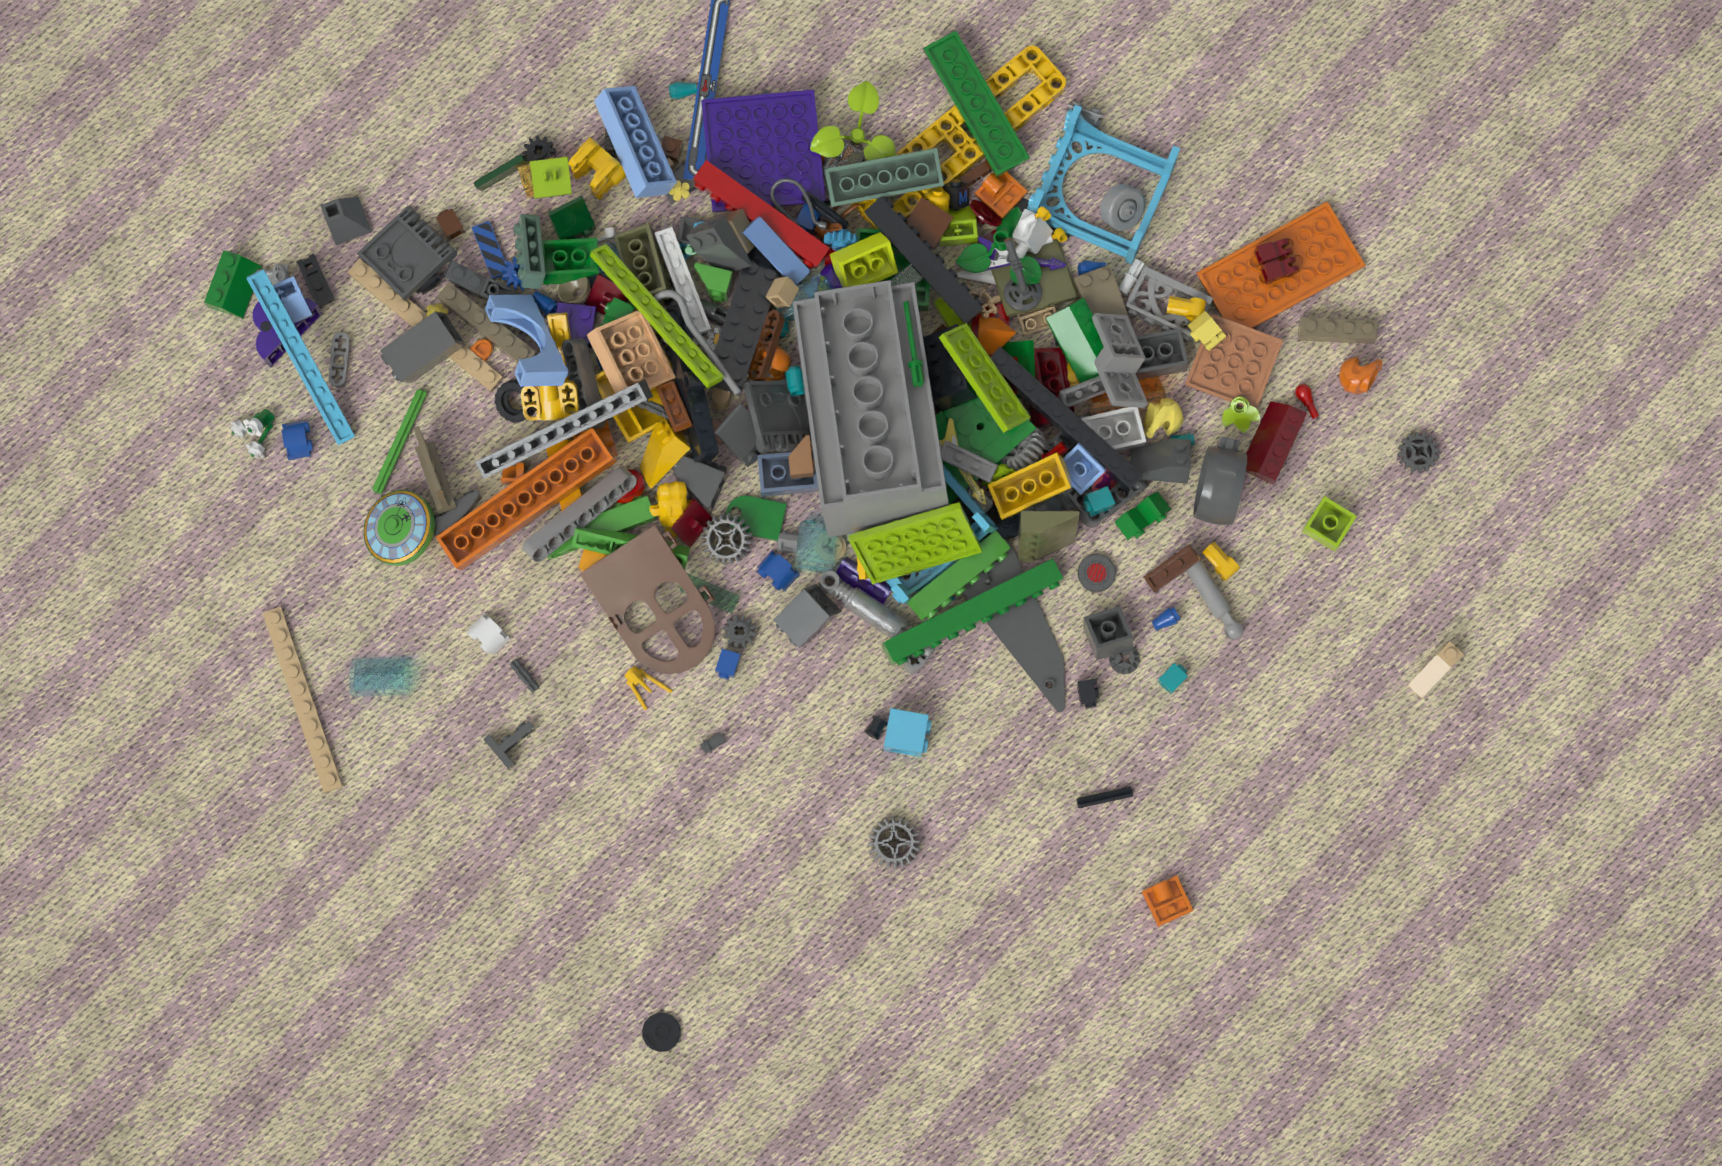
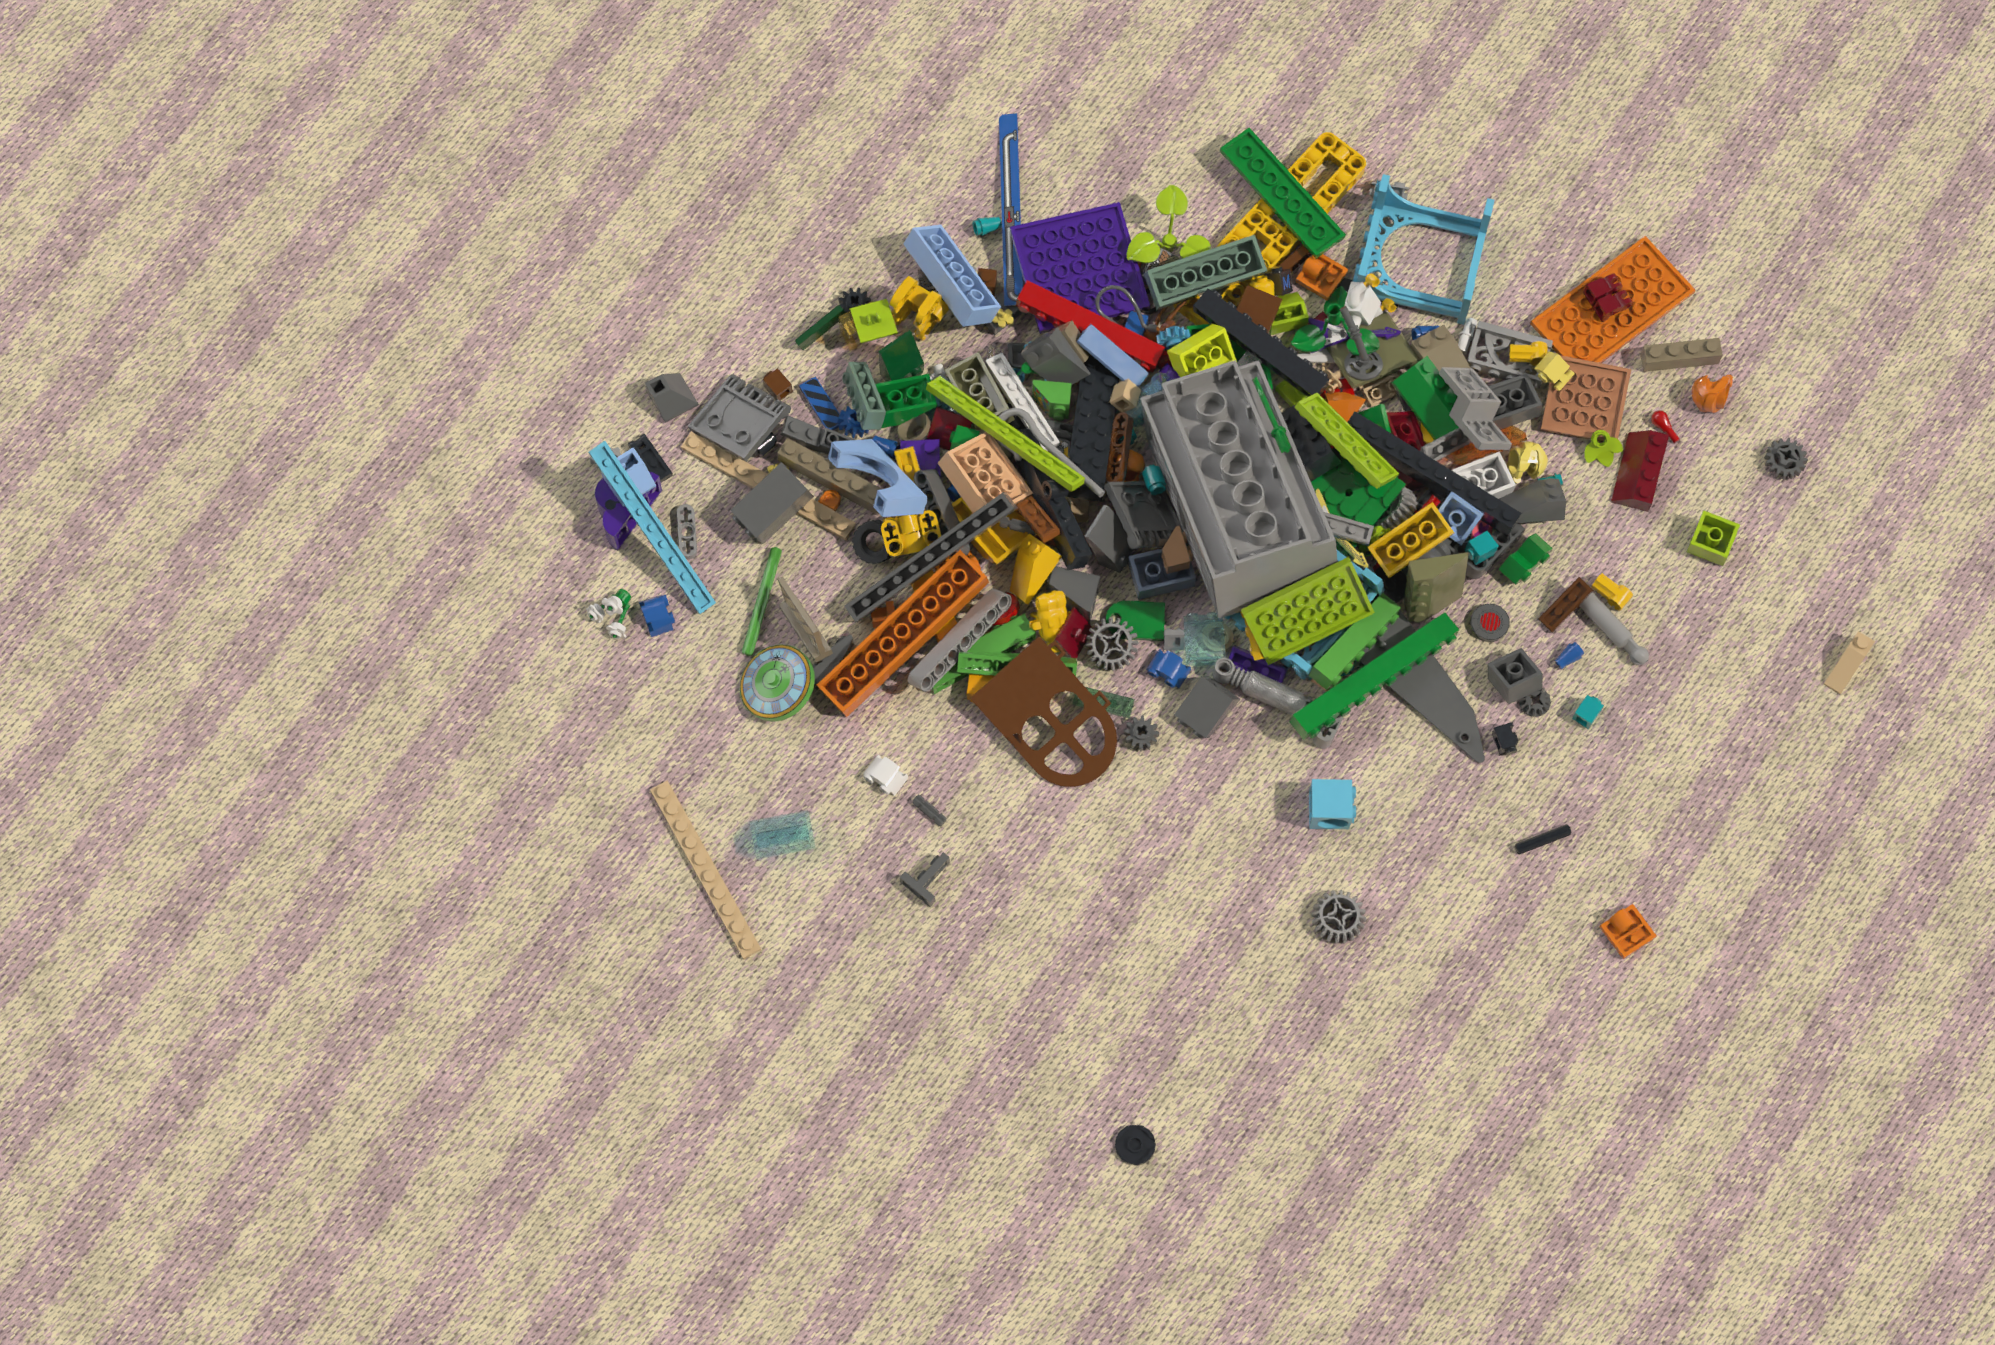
camera: 10 degrees left, 10 degrees down
(229, 287) = (567, 475): green slope -> none
(635, 676) = (1045, 793): yellow plant -> none
(712, 743) = (1135, 846): dark grey pin -> none
(727, 664) = (1135, 766): blue brick -> none
(826, 211) = (1152, 313): black axle -> none
(875, 727) = (1297, 806): black bush -> none
(984, 214) = (1309, 297): dark red dish -> none
(1122, 207) = (1444, 270): light grey wheel -> none
(1220, 483) = (1599, 511): dark grey cylinder -> none

